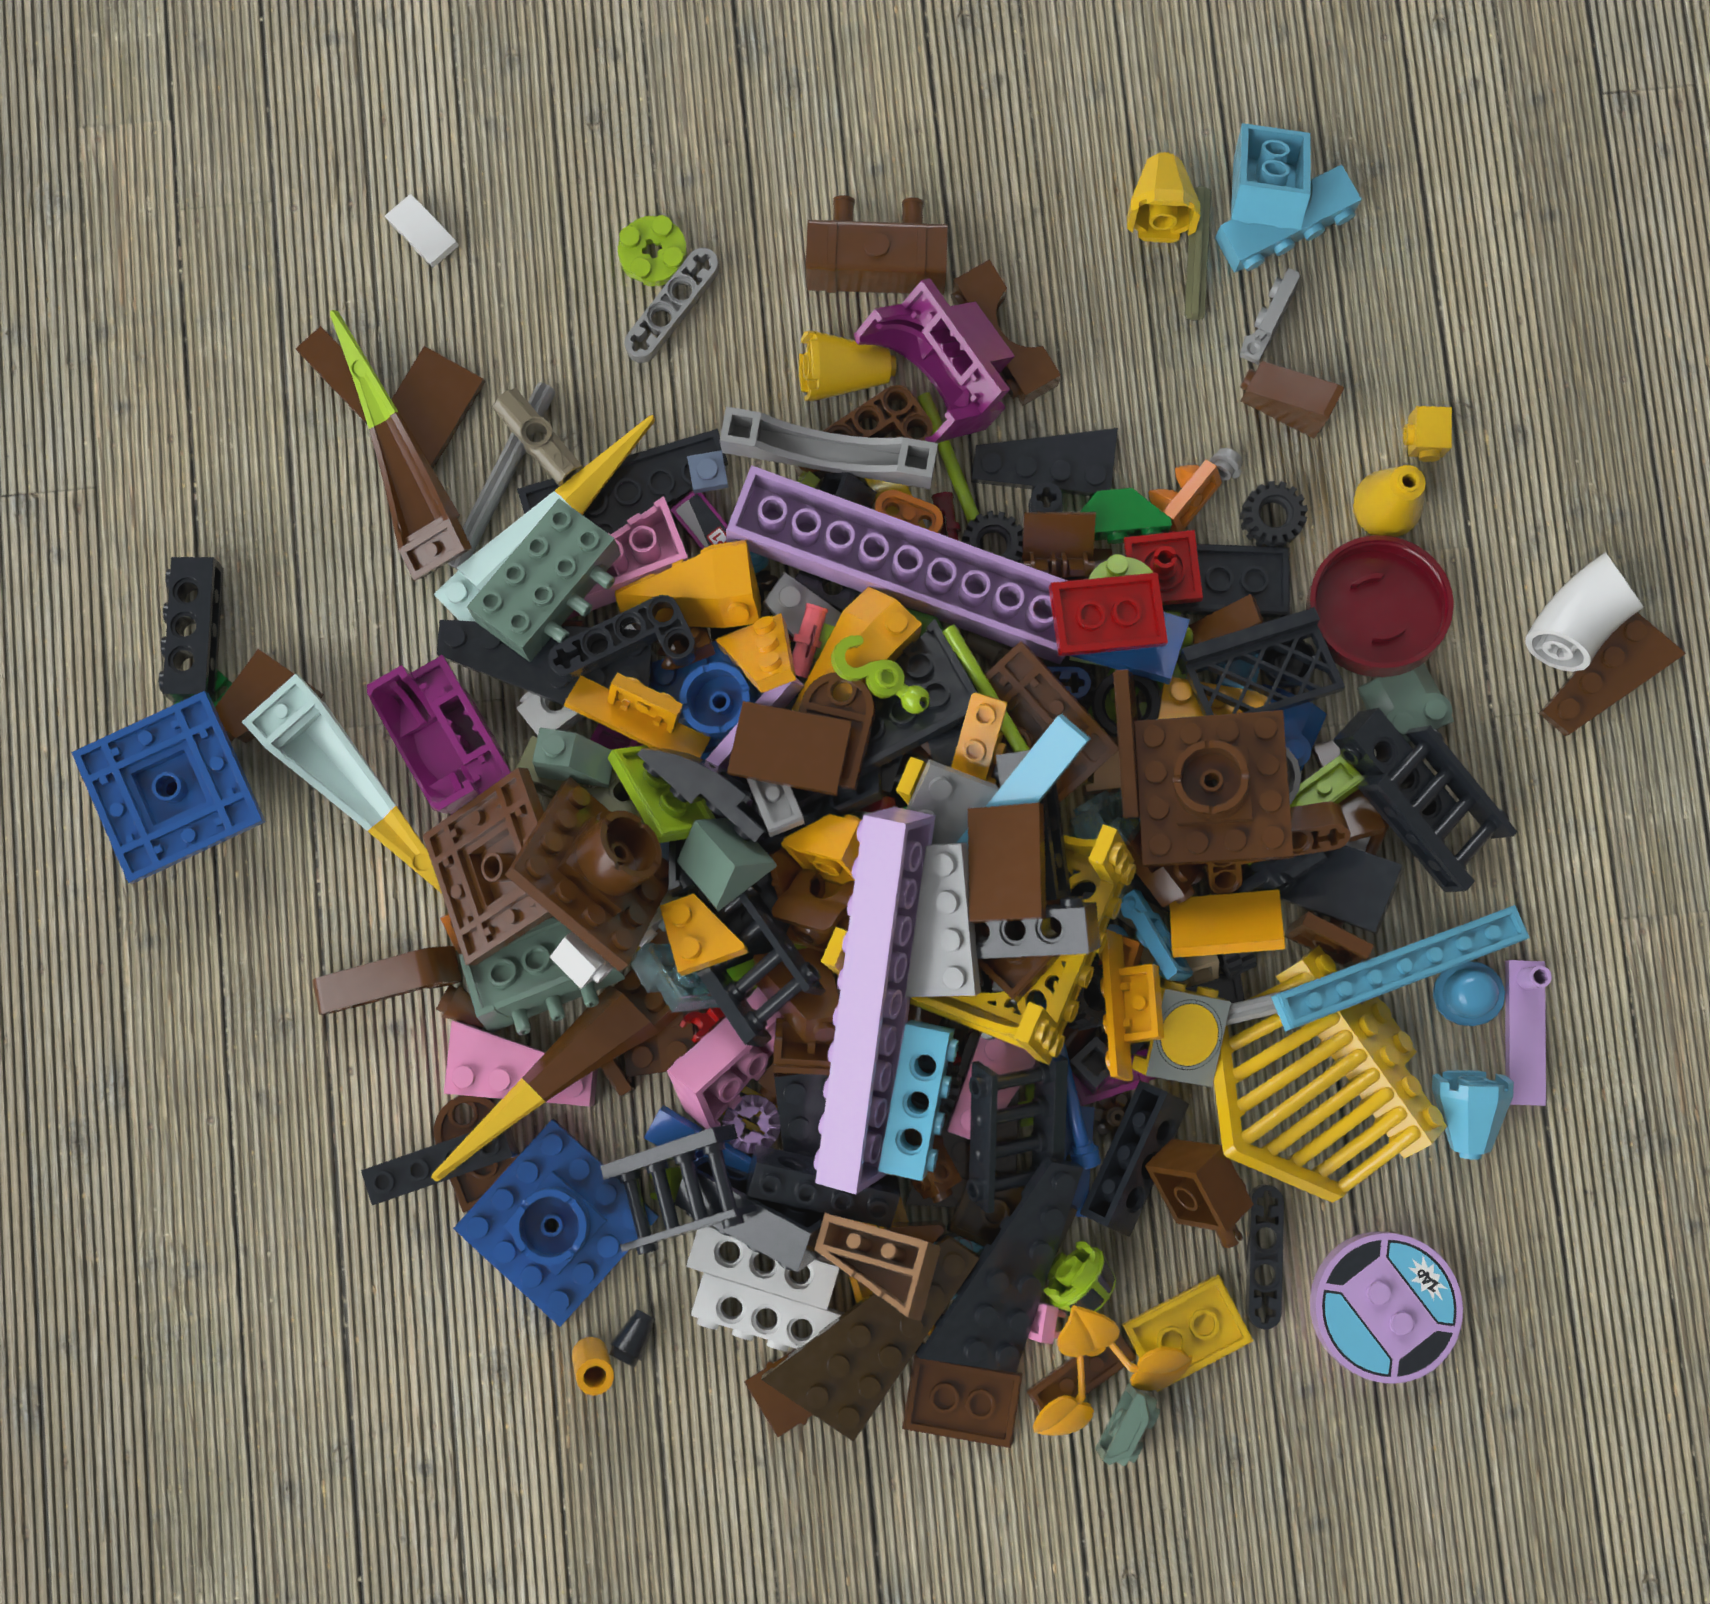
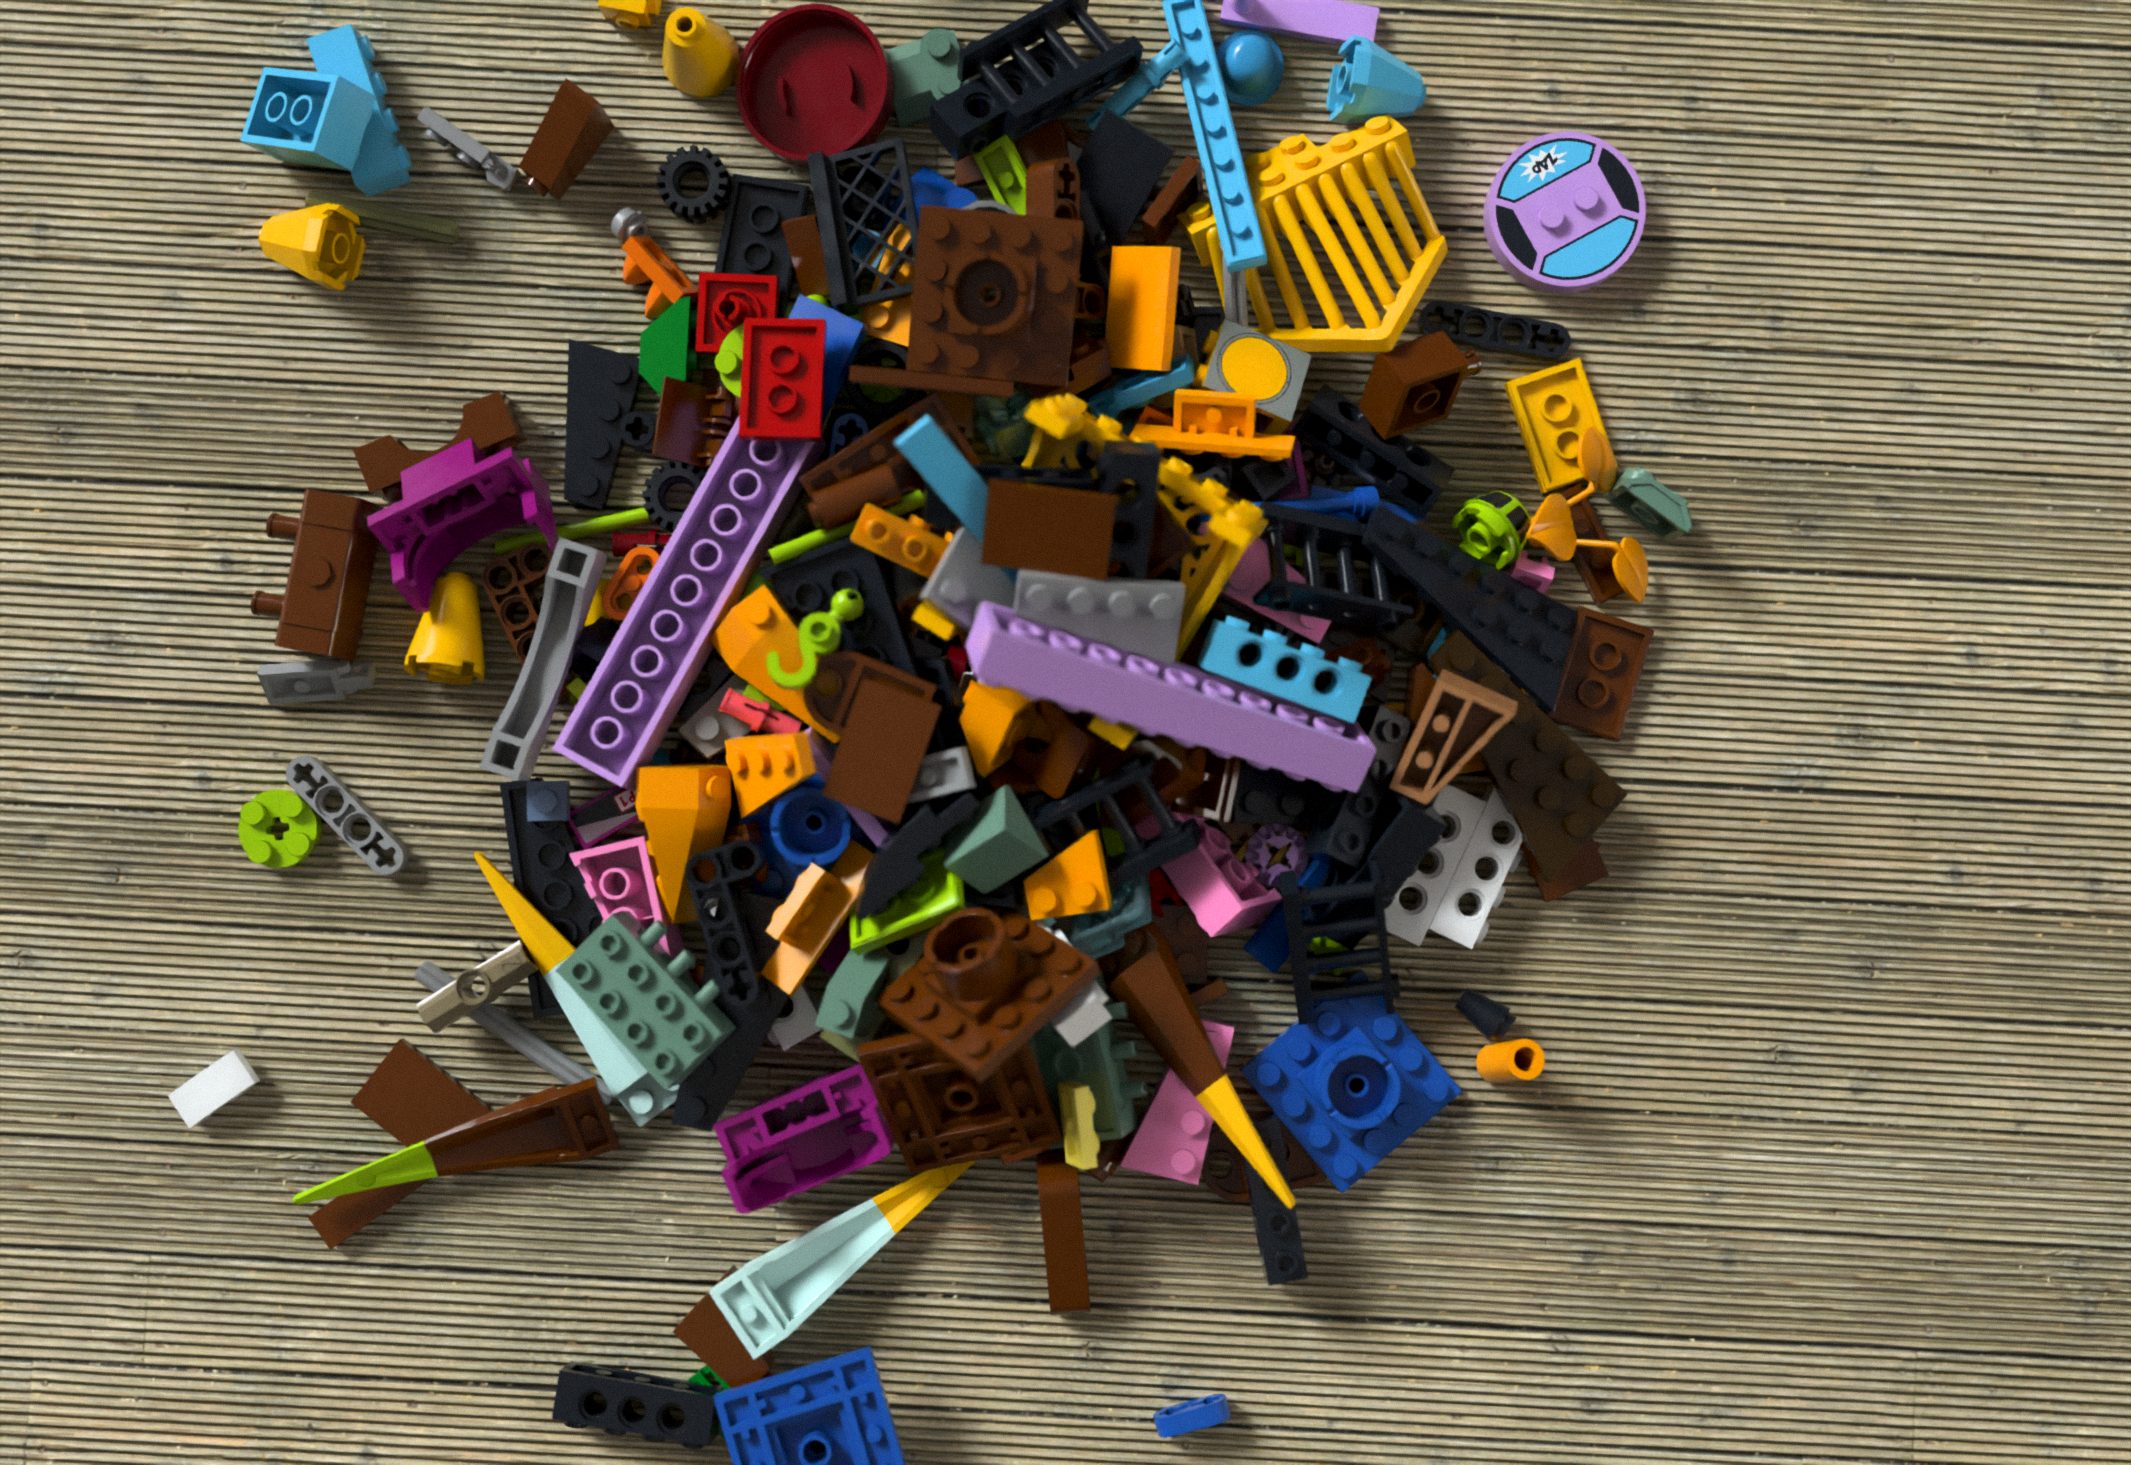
camera: 80 degrees left, 5 degrees up
(237, 1120) = (1192, 1415): none -> blue beam
(471, 978) = (1079, 1136): none -> light yellow plate
(784, 259) = (315, 680): none -> light grey hinge
(1008, 684) = (847, 499): none -> reddish brown brick
(1441, 902) = (1143, 82): none -> medium azure pin

